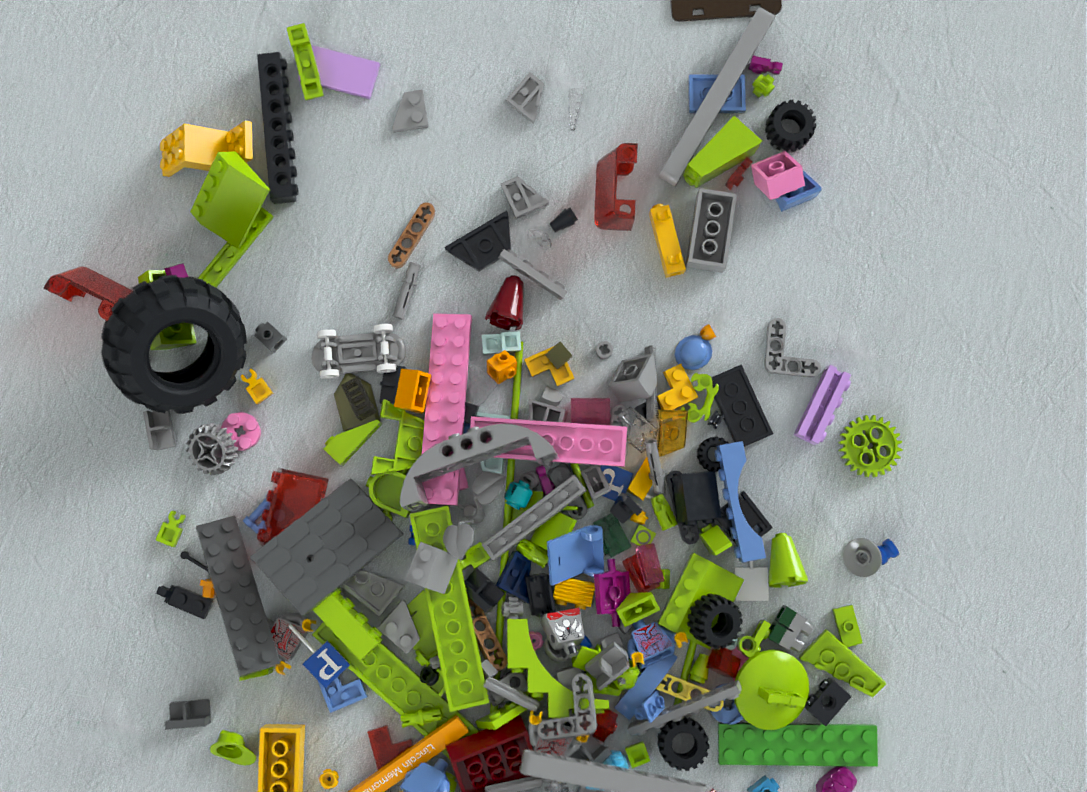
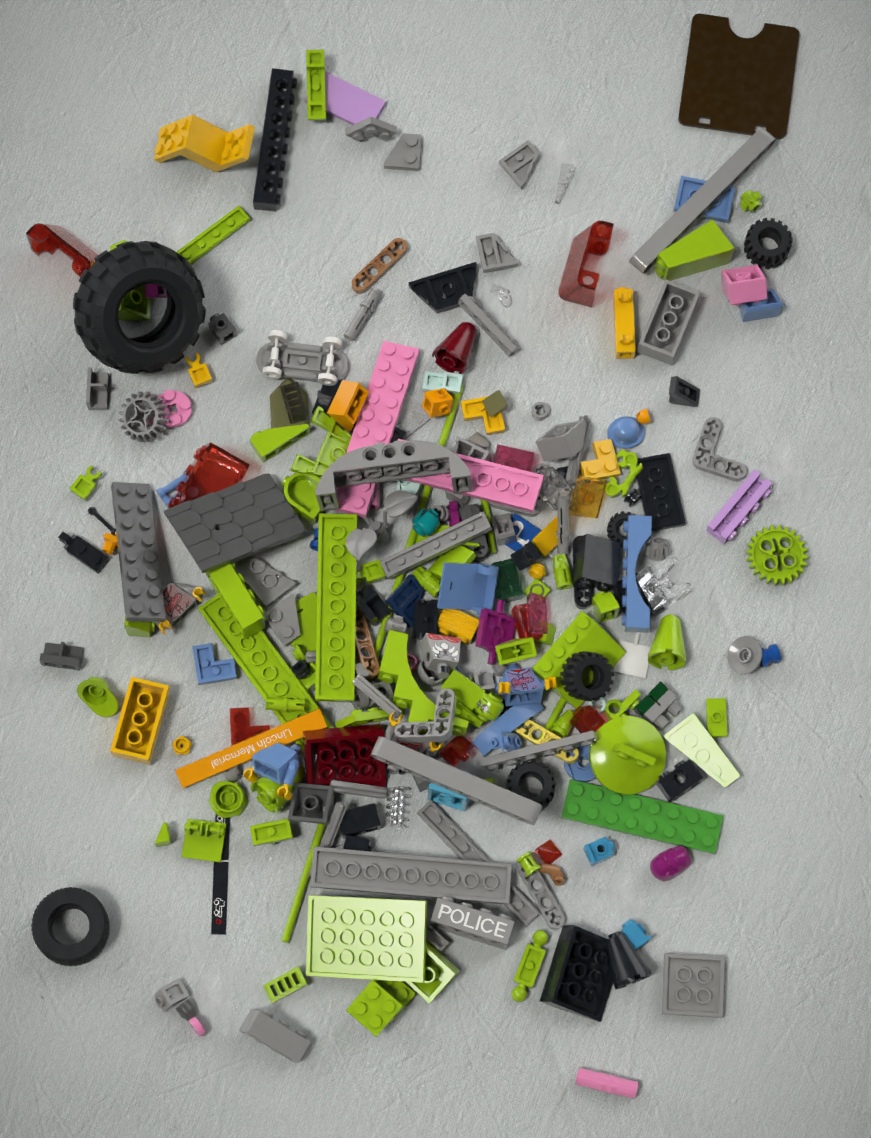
camera: 10 degrees right, 10 degrees down
(229, 198) = (217, 192): lime slope -> none
(324, 663) = (204, 634): blue piece -> none
(369, 94) = (371, 126): none -> light grey plate
(431, 568) = (329, 563): light grey slope -> none
(563, 220) = (529, 283): black cone -> none
(608, 665) = (475, 689): light grey panel -> none
(736, 178) = (705, 278): clear red plate -> none
(741, 299) = (683, 392): none -> black slope
(752, 468) = (657, 549): none -> light grey gear
(762, 65) = (754, 182): magenta plate -> none
(762, 507) = (659, 587): none -> clear piece

